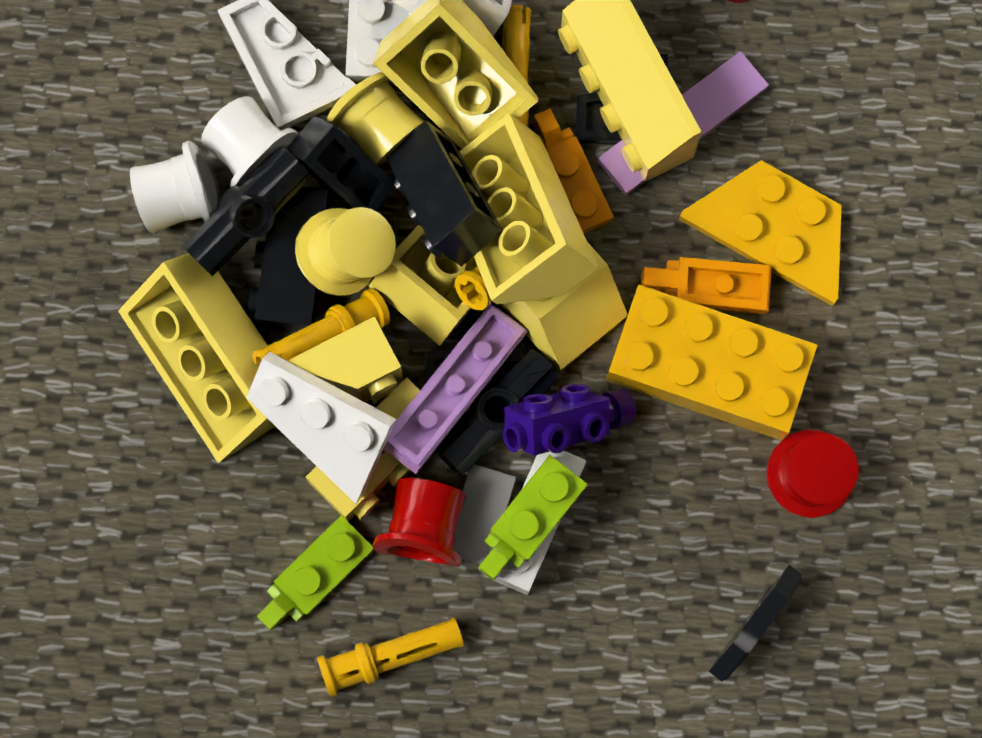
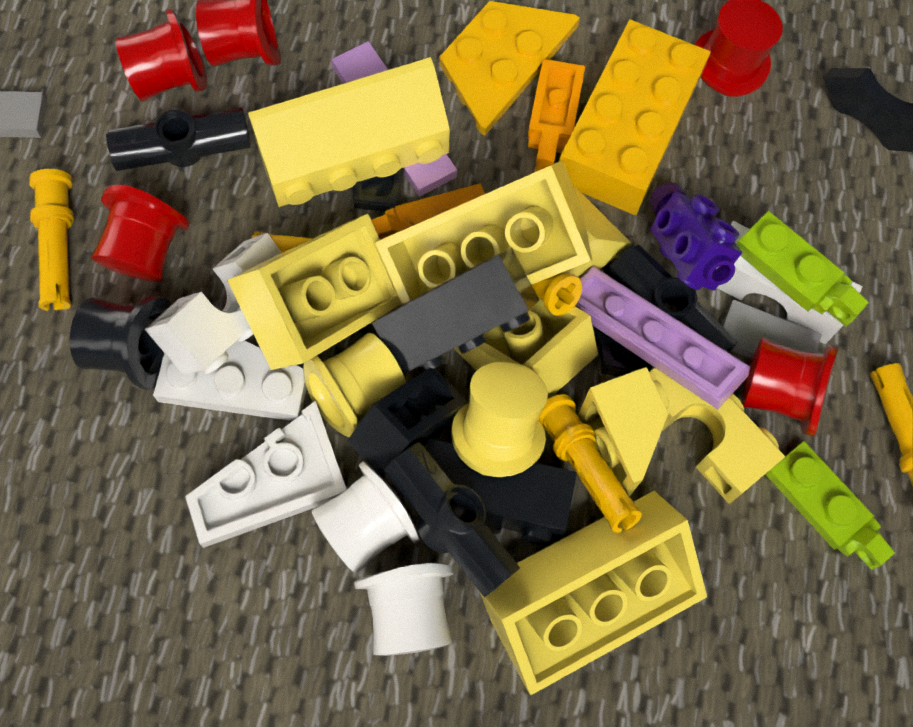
camera: 85 degrees left, 10 degrees down
(323, 422) = (699, 456): white wing -> none

